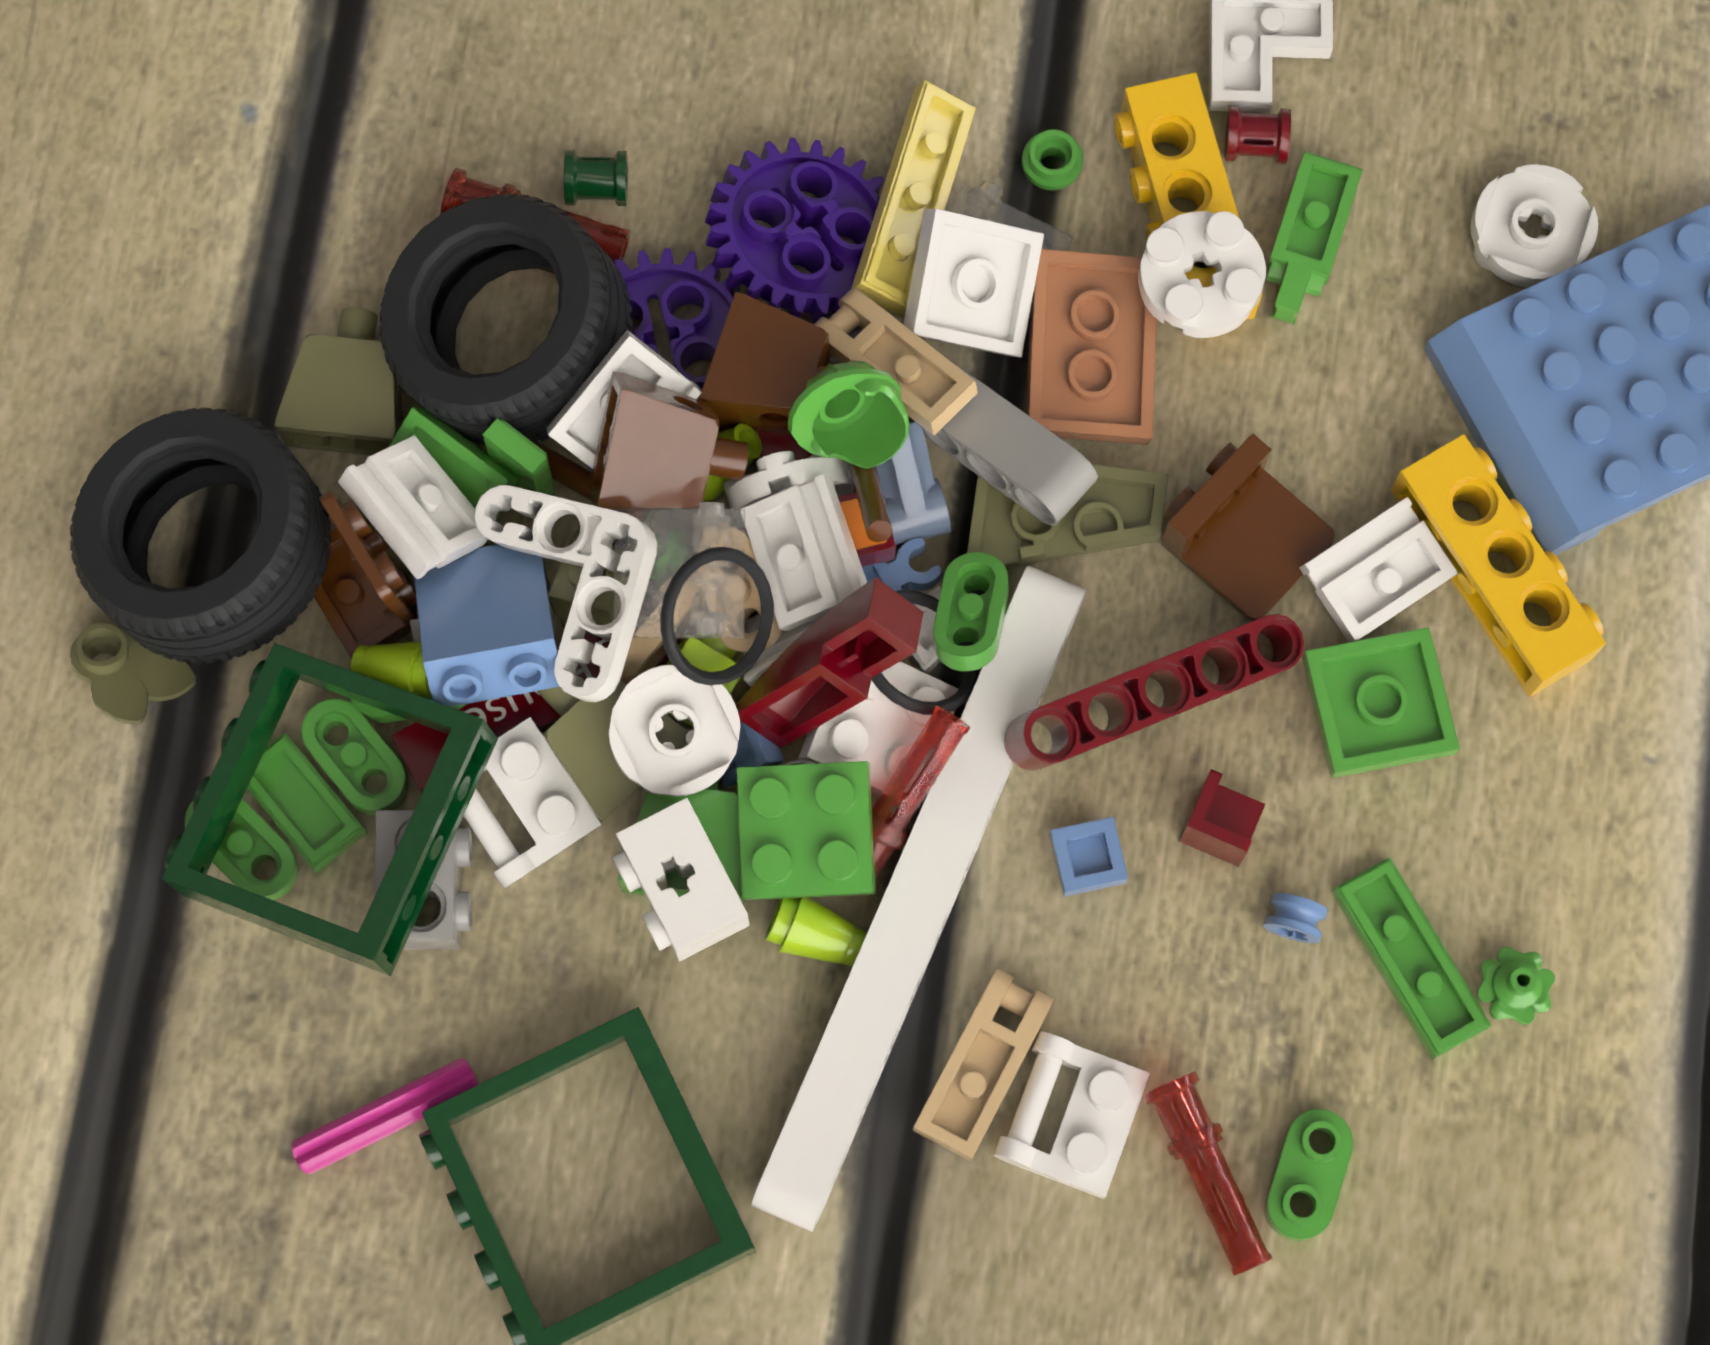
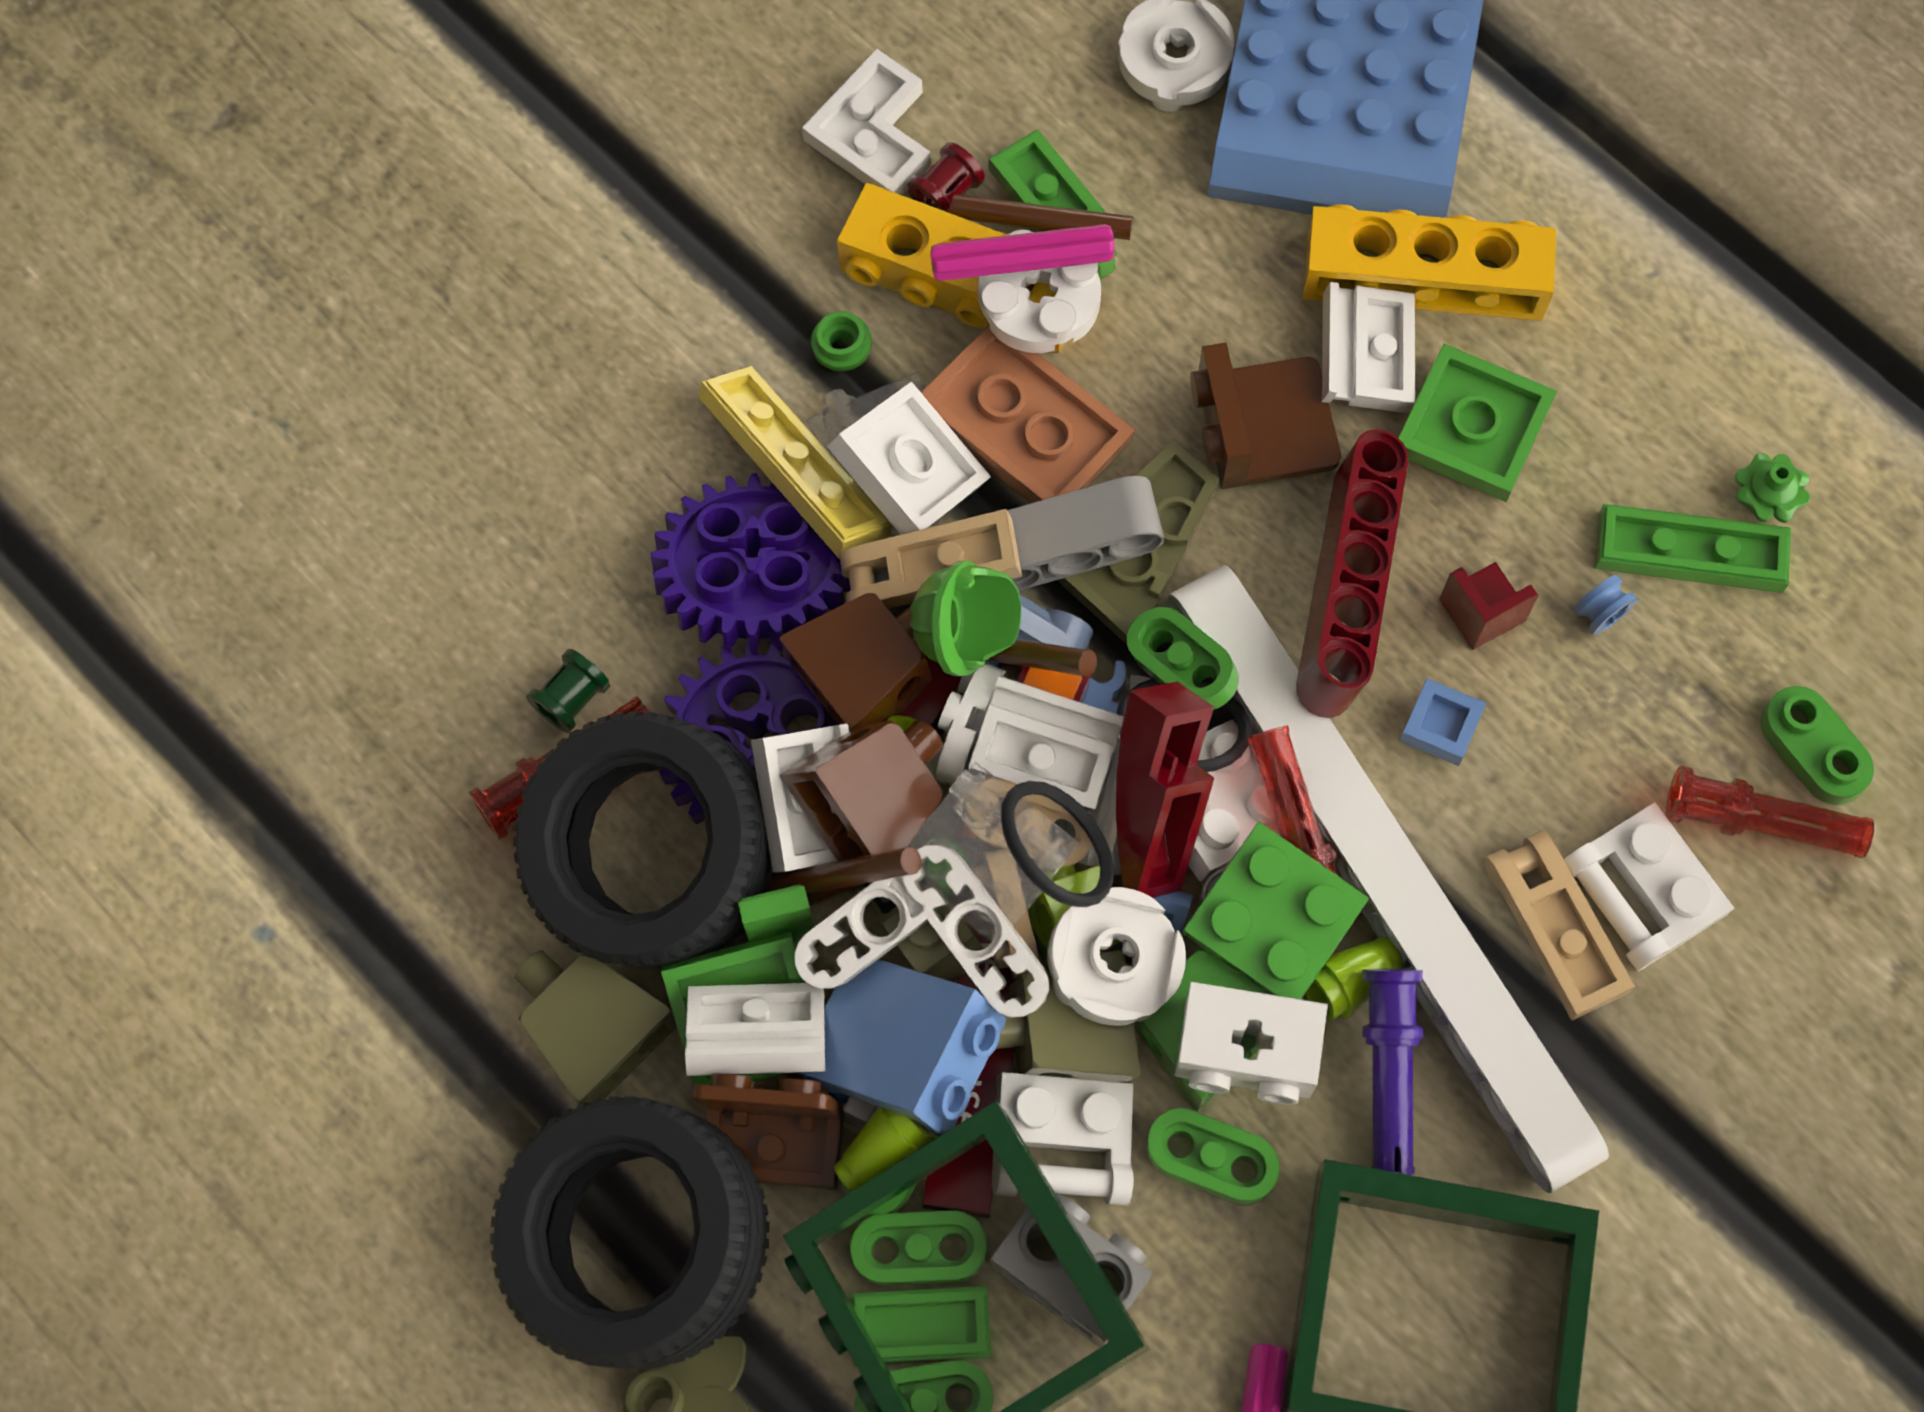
camera: 50 degrees left, 5 degrees down
(580, 481) = (850, 871): none -> reddish brown bar
(587, 926) = (1214, 1151): none -> bright green plate
(781, 992) = (1392, 1034): none -> dark purple pin
(1213, 232) = (1022, 252): none -> dark pink axle
(1279, 230) = (1037, 216): none -> reddish brown bar

